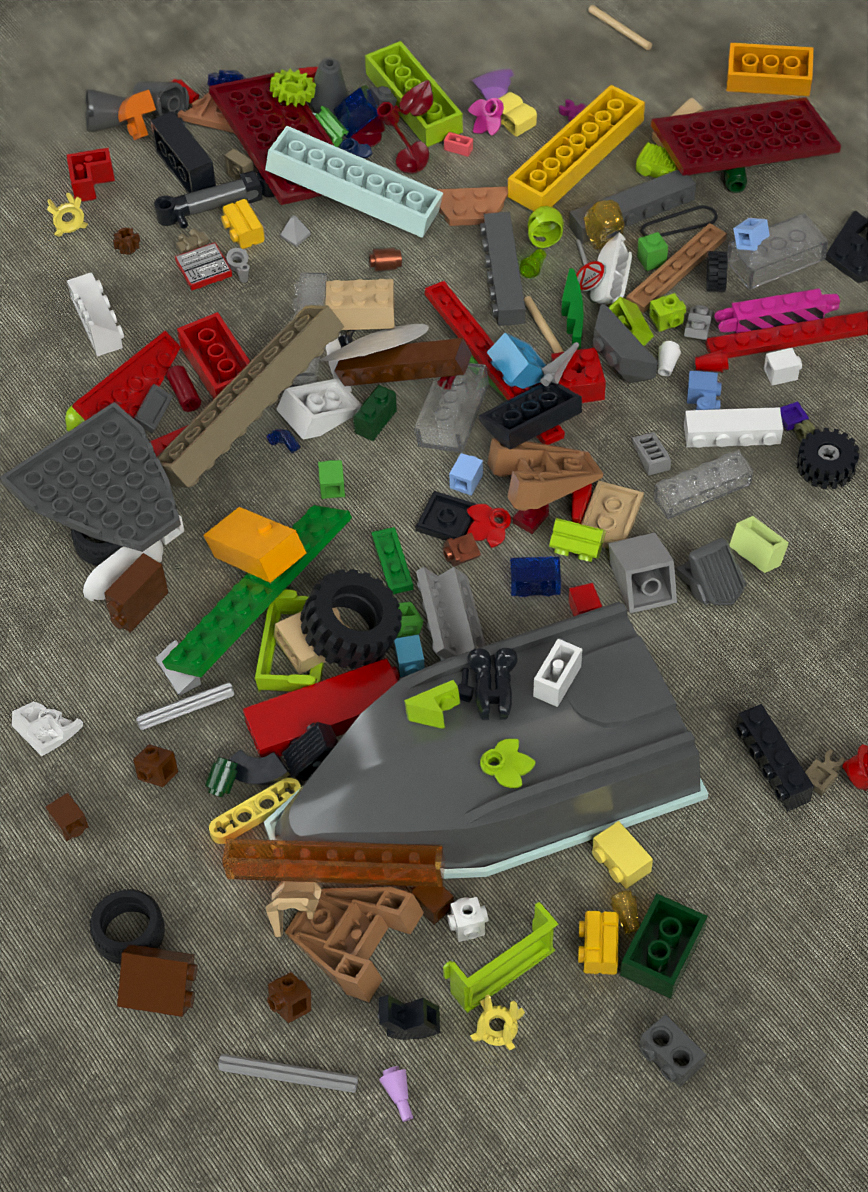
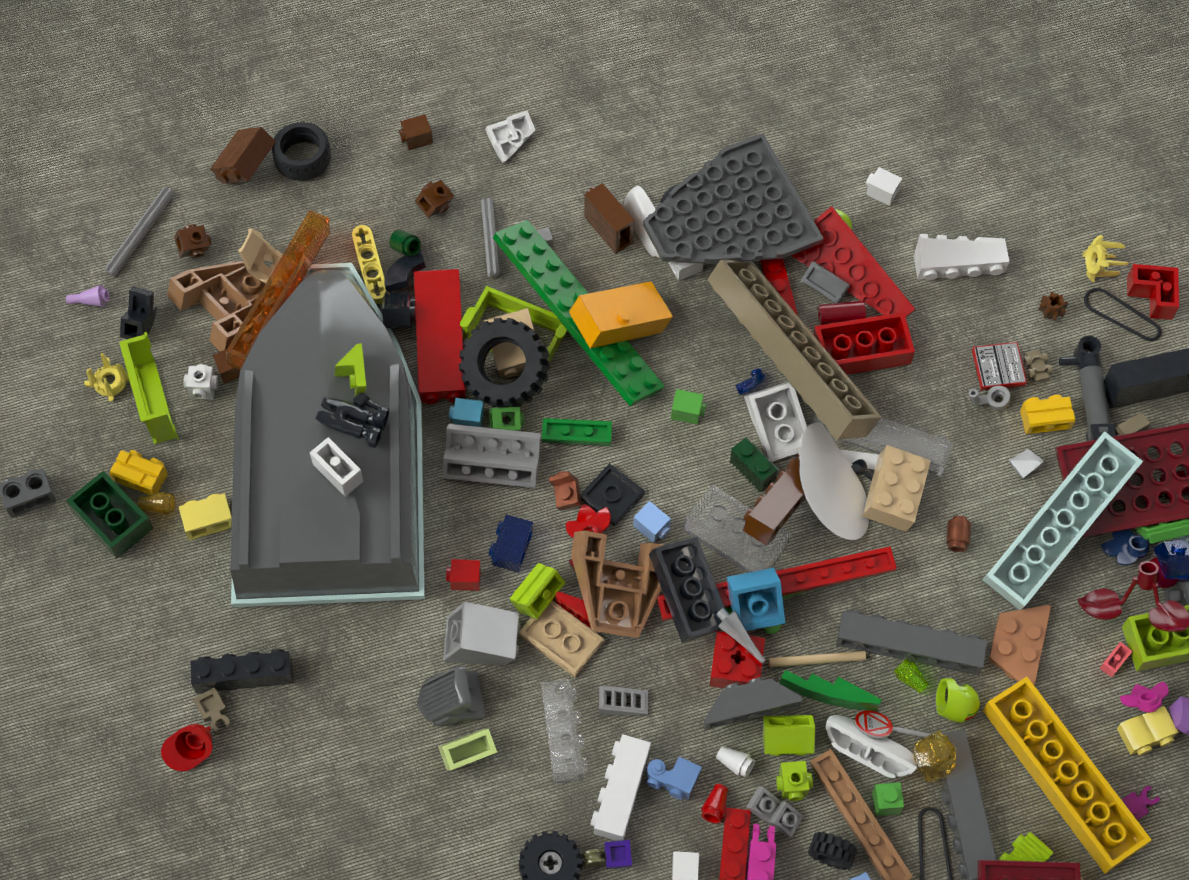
camera: 105 degrees right, 10 degrees up
(26, 387) = (883, 186): none -> white brick
(108, 195) = (1118, 323): none -> black piece
(510, 763) = (279, 415): lime plate -> none

